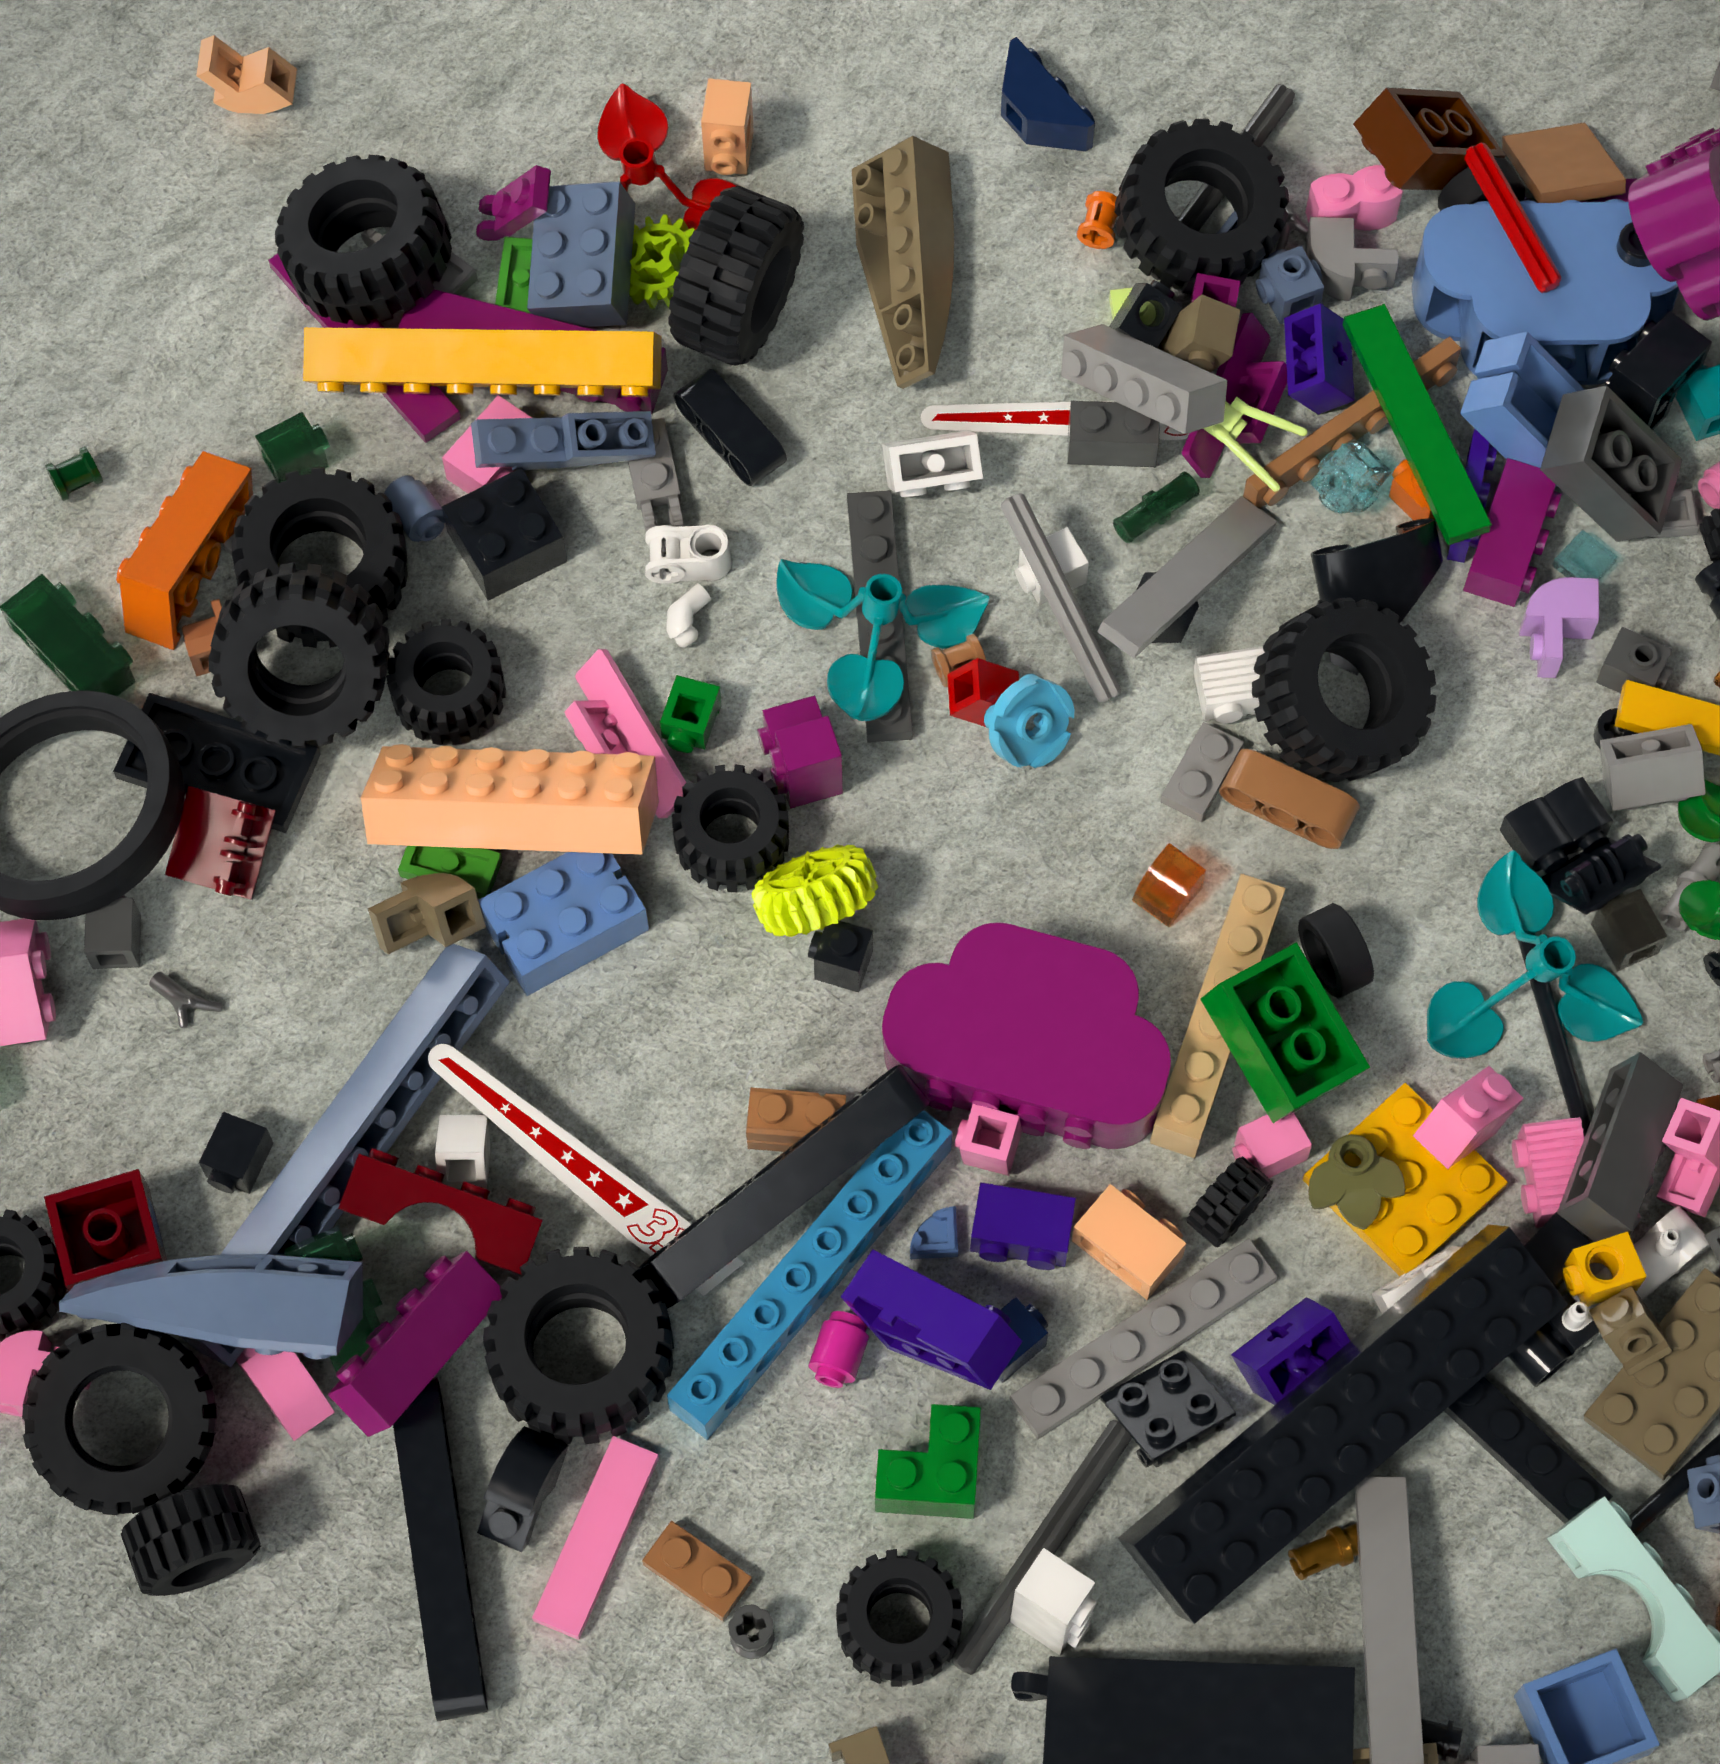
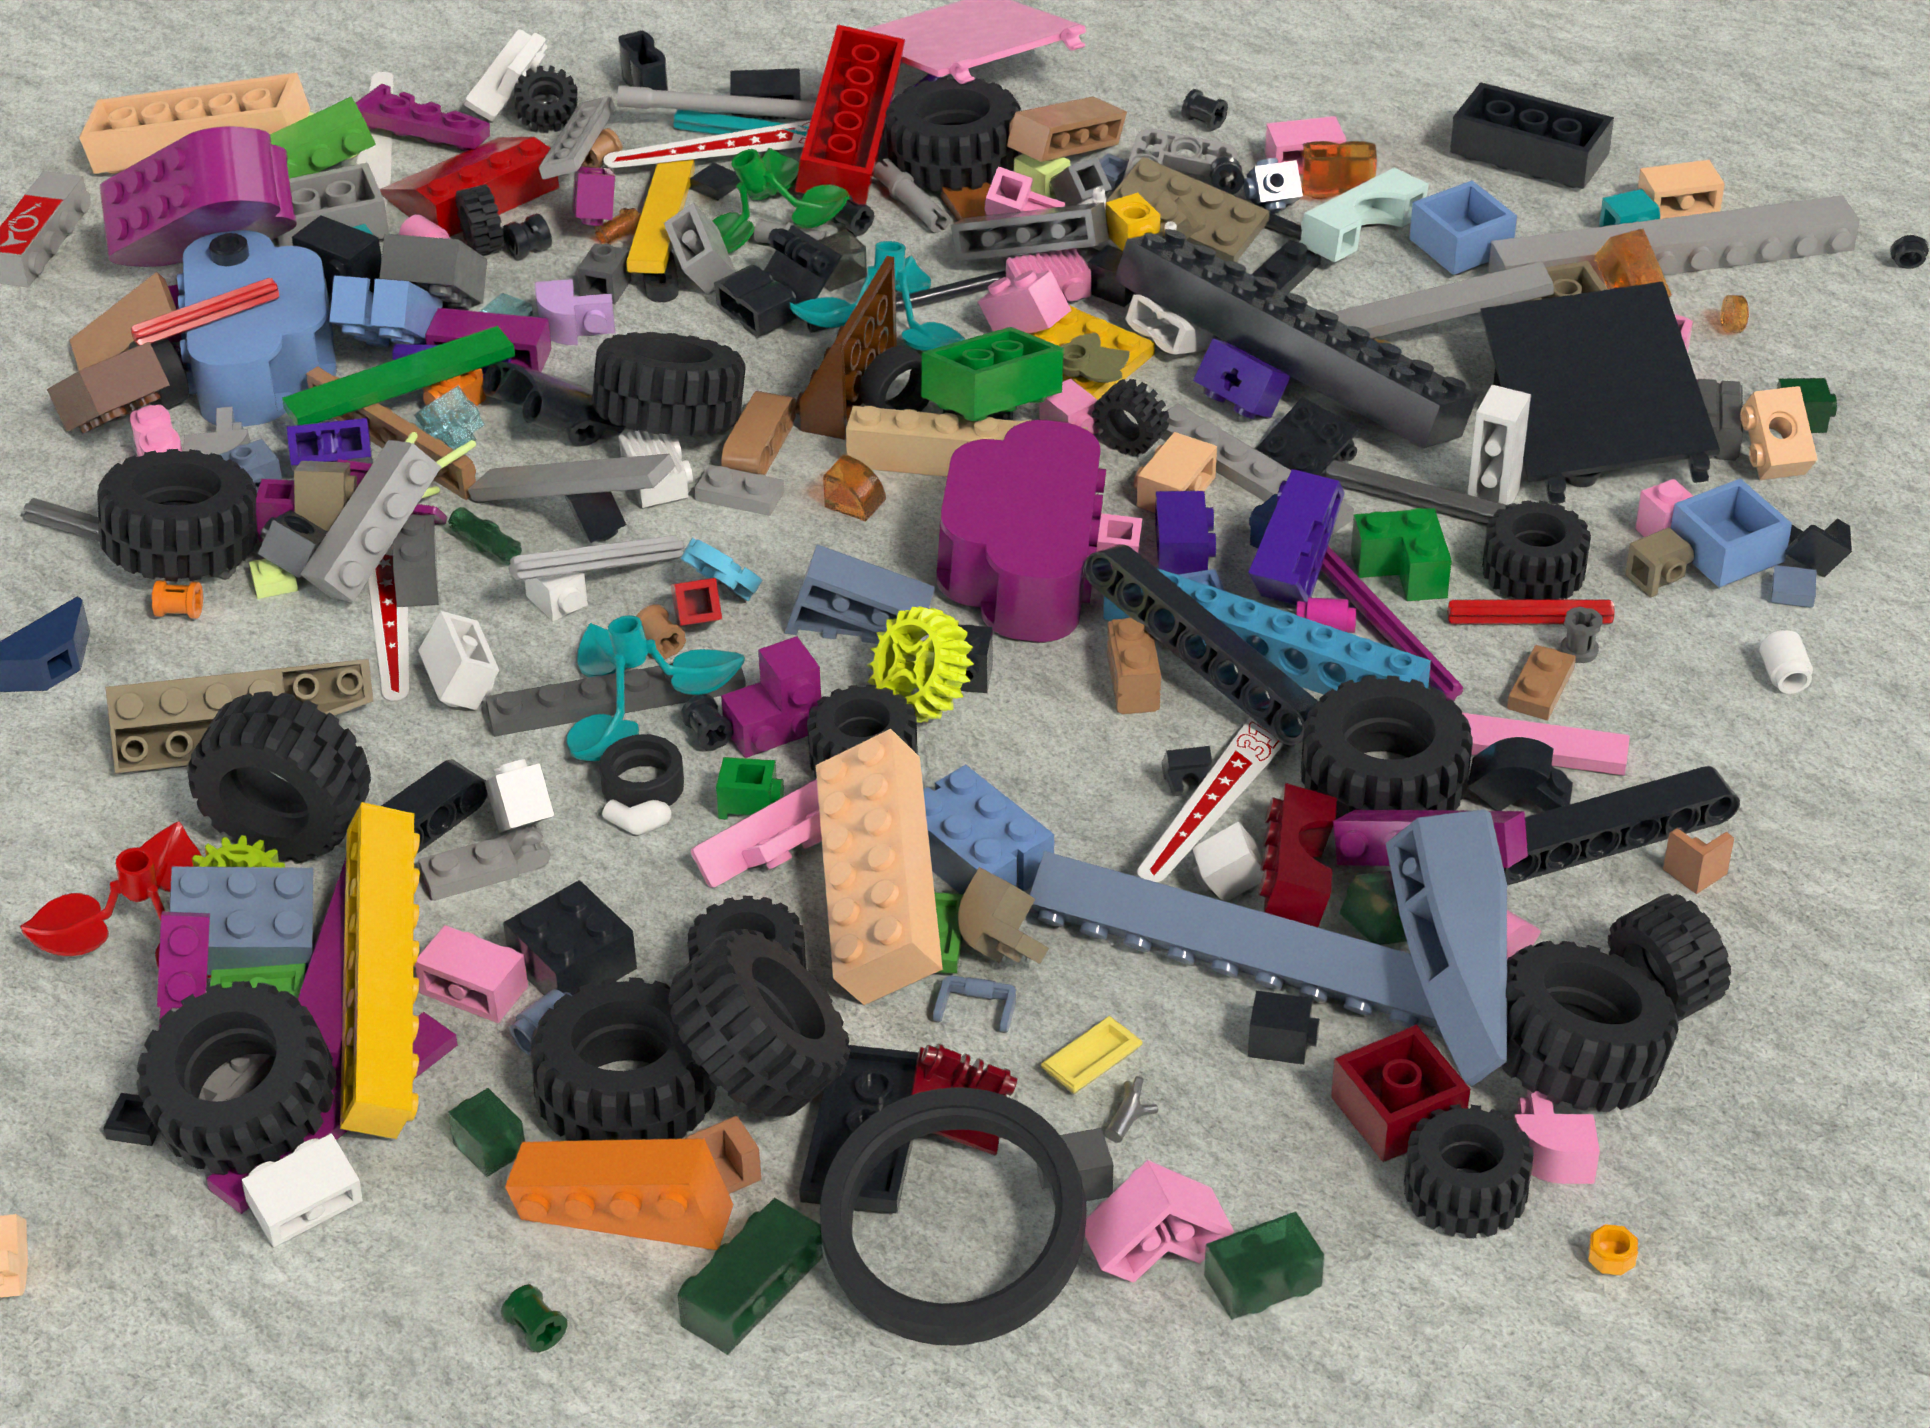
camera: 100 degrees left, 25 degrees down
(256, 302) = (302, 1189): none -> white brick
(258, 977) = (1091, 1054): none -> light yellow tile
(367, 1644) = (1696, 862): none -> nougat panel
(373, 896) = (977, 988): none -> sand blue piece
(563, 441) = (466, 891): sand blue slope -> none
(631, 1145) = (1186, 763): none -> black tile
(684, 552) = (573, 819): white piece -> none
(693, 492) = (518, 795): none -> white brick
(727, 126) = (78, 840): light nougat brick -> none
(733, 591) = (636, 752): none -> black tyre
(805, 686) = (707, 722): none -> black bush
(816, 1594) = (1523, 610): none -> red axle
(828, 1422) = (1386, 622): none -> magenta axle
(953, 858) = (852, 597): none -> sand blue wedge
(1387, 907) = (837, 382): none -> reddish brown slope

